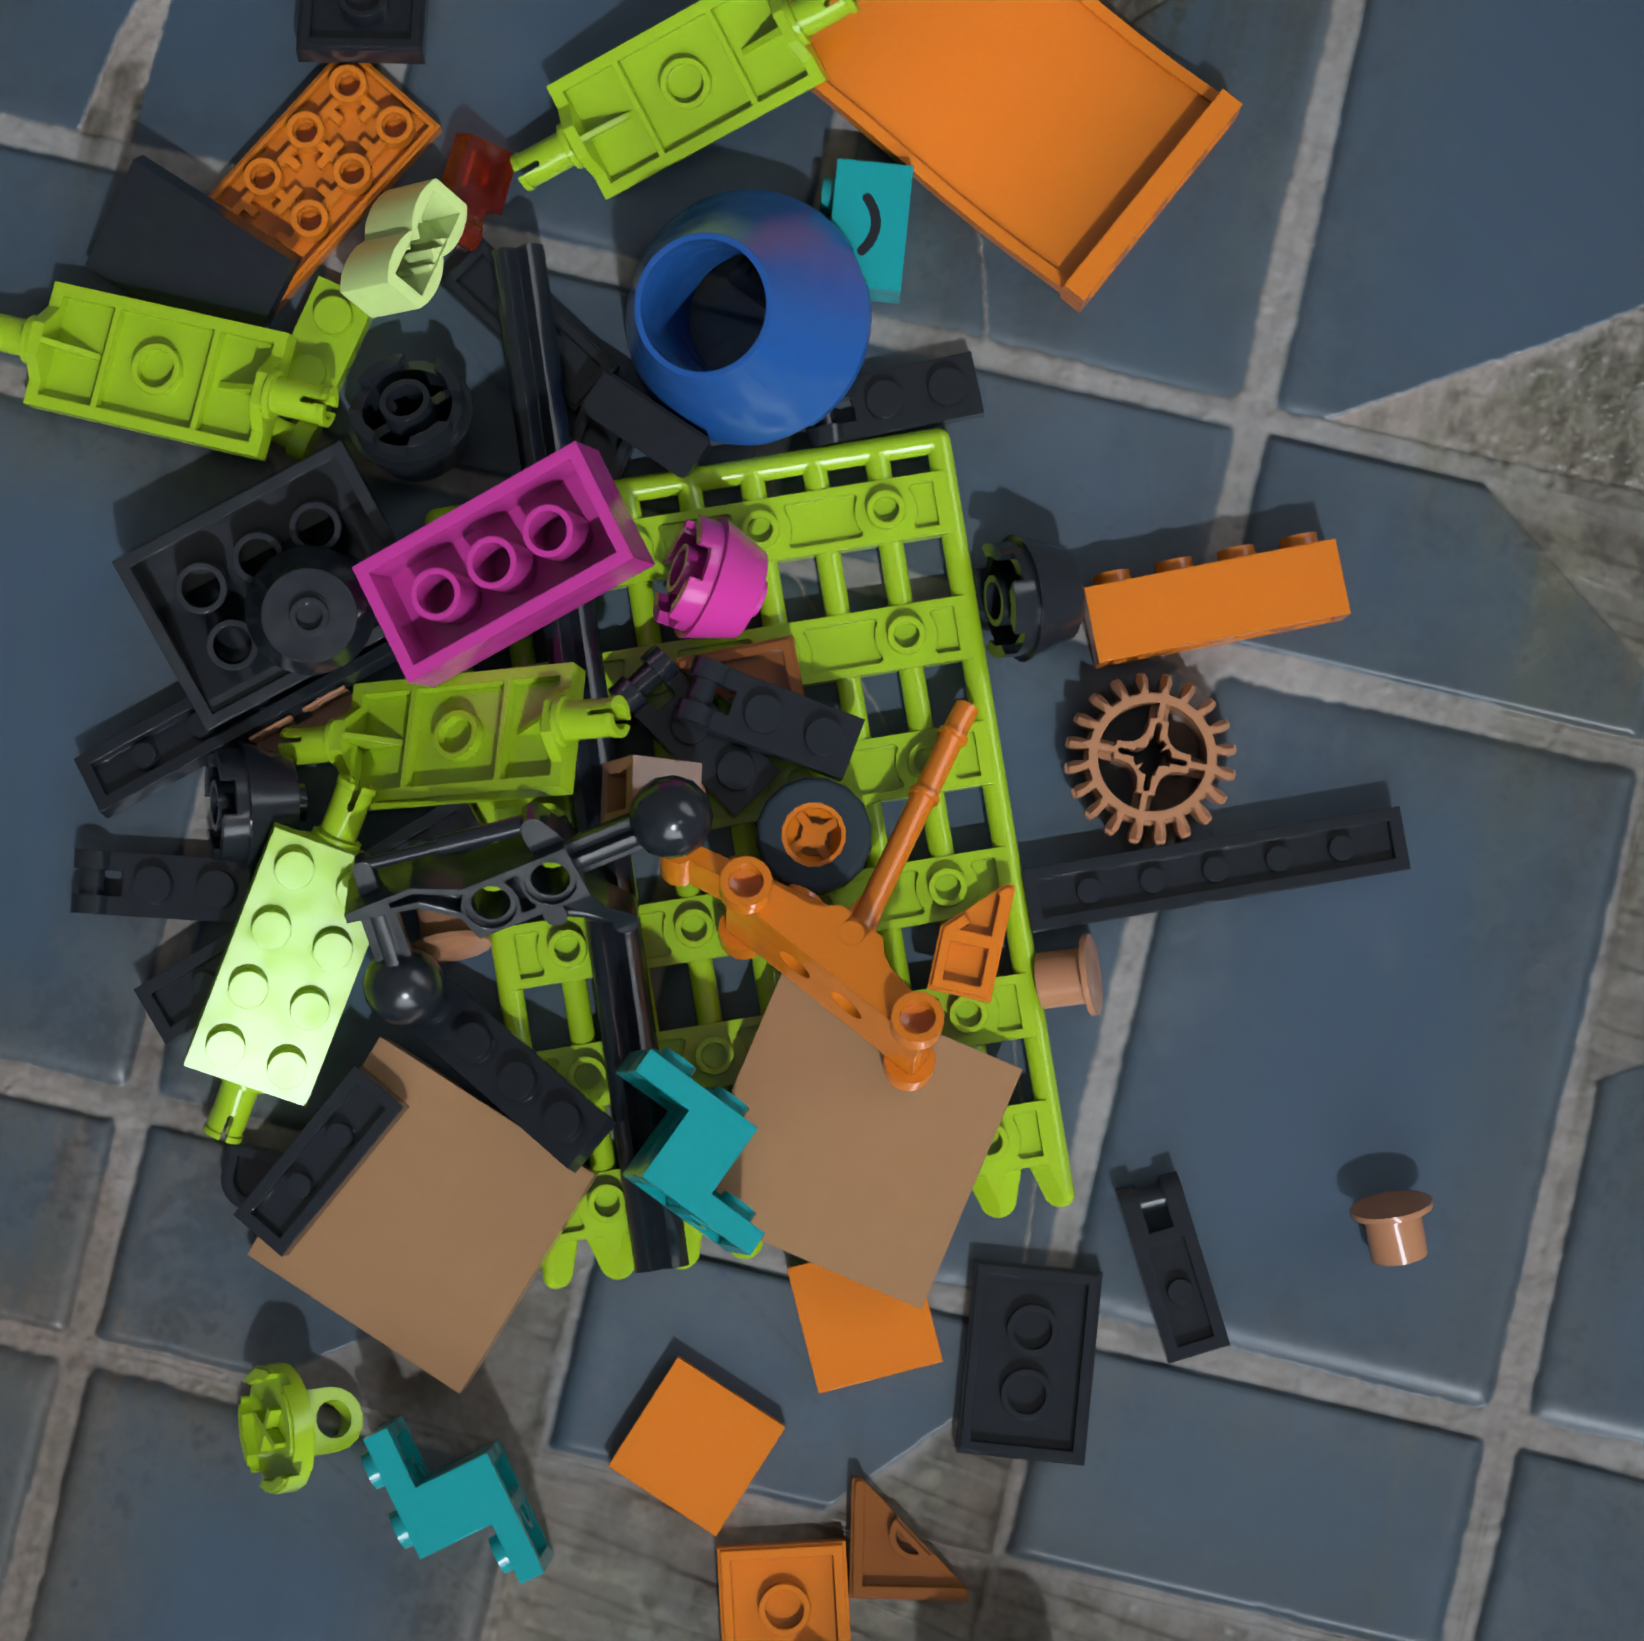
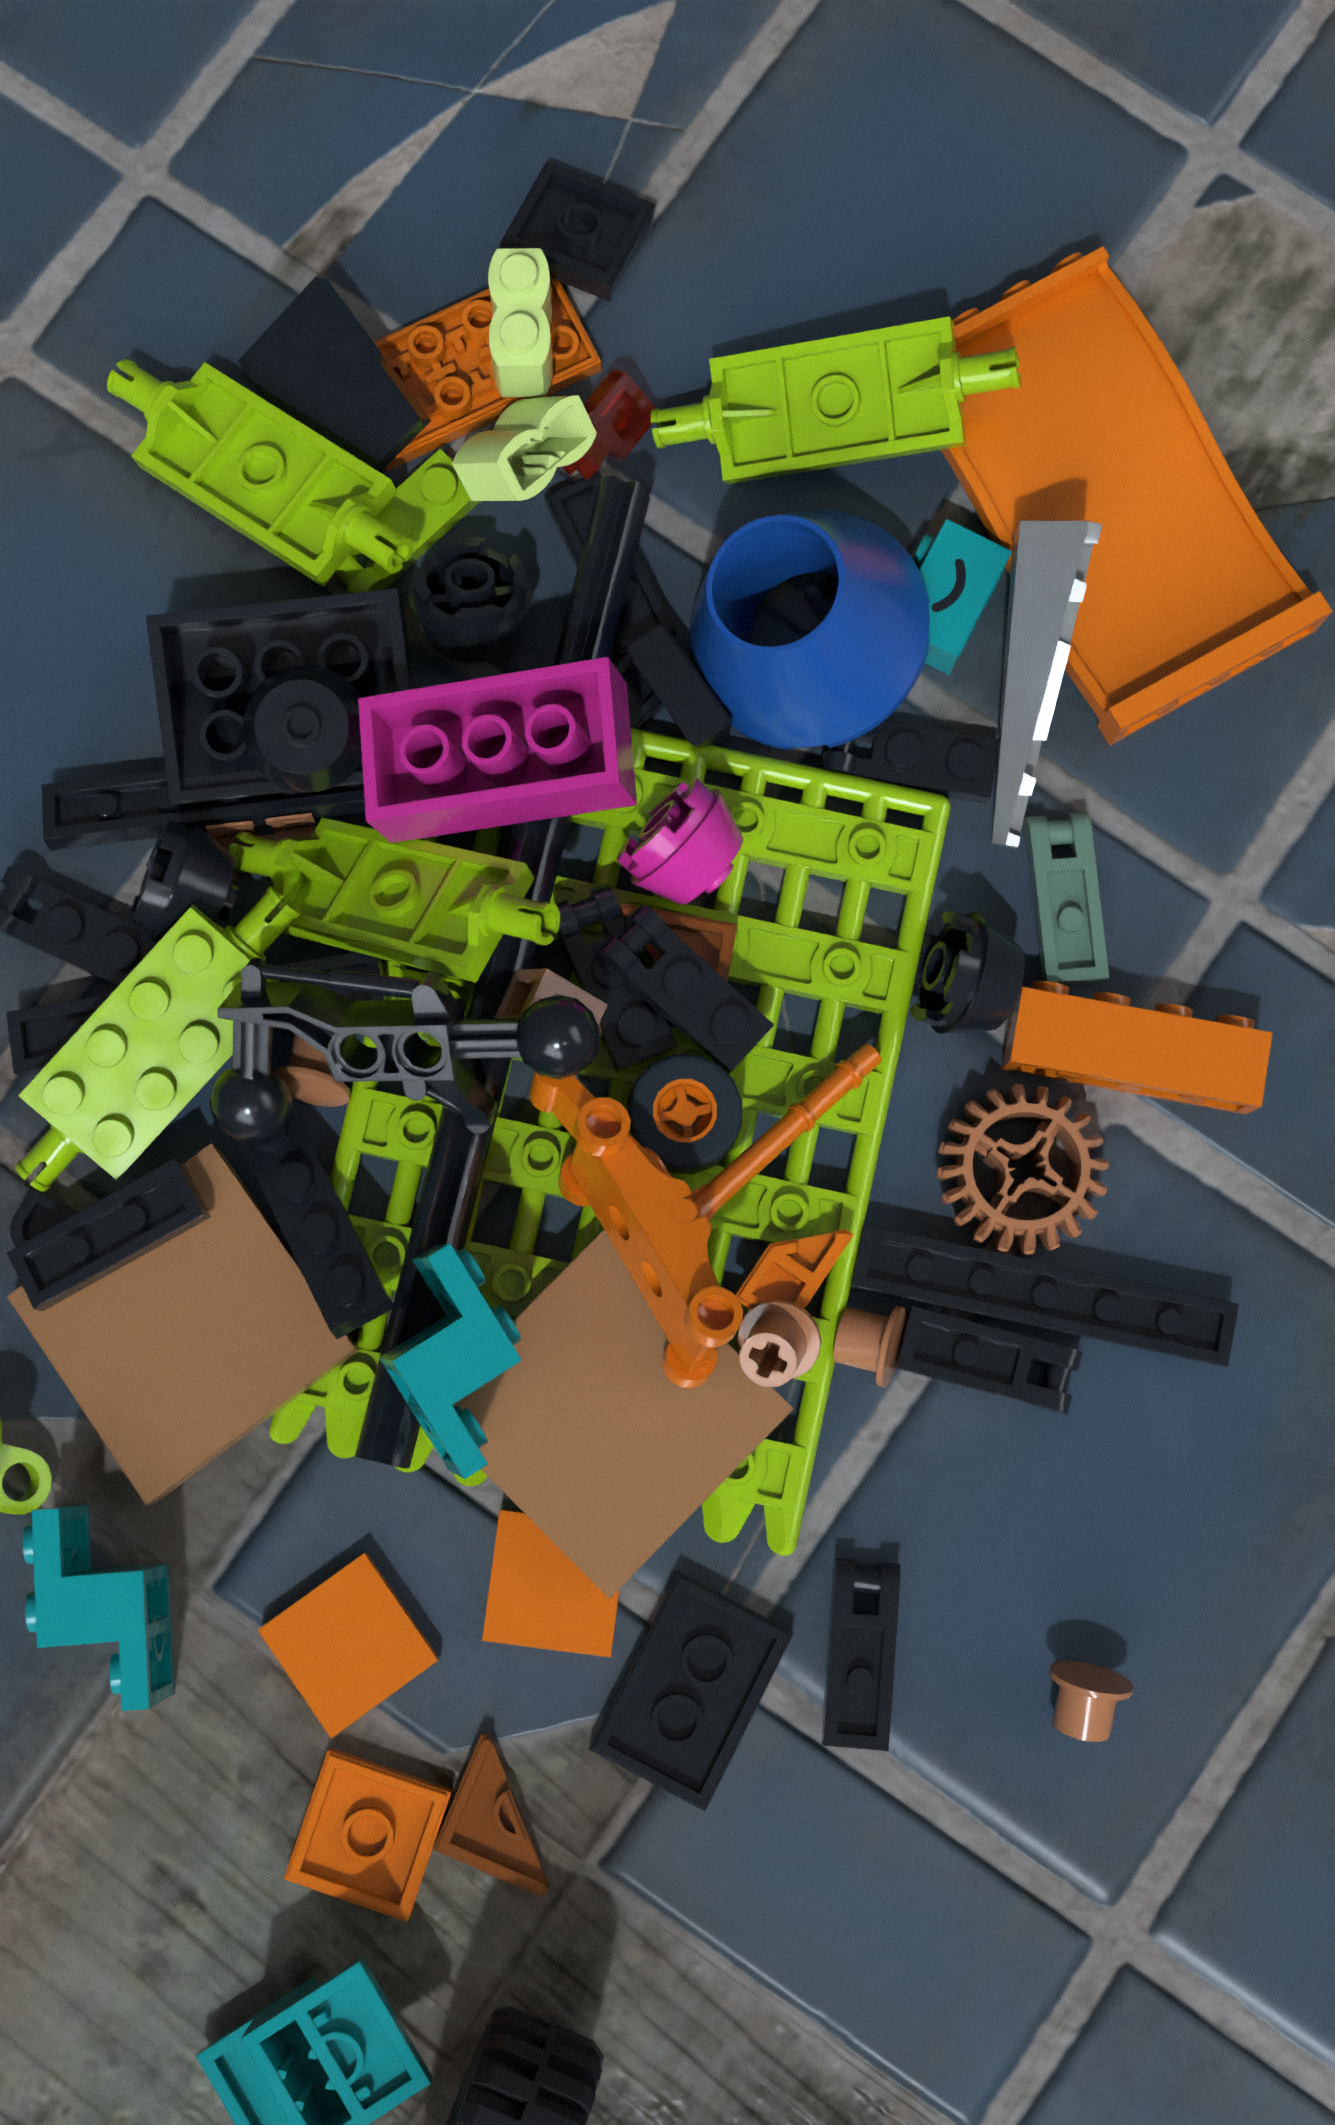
camera: 15 degrees right, 5 degrees down
(350, 125) = (520, 322): none -> yellowish green brick
(965, 216) = (1043, 605): none -> light grey wedge
(984, 1015) = (777, 1342): none -> nougat piece
(1095, 483) = (1067, 900): none -> sand green plate
(1183, 950) = (986, 1359): none -> black plate

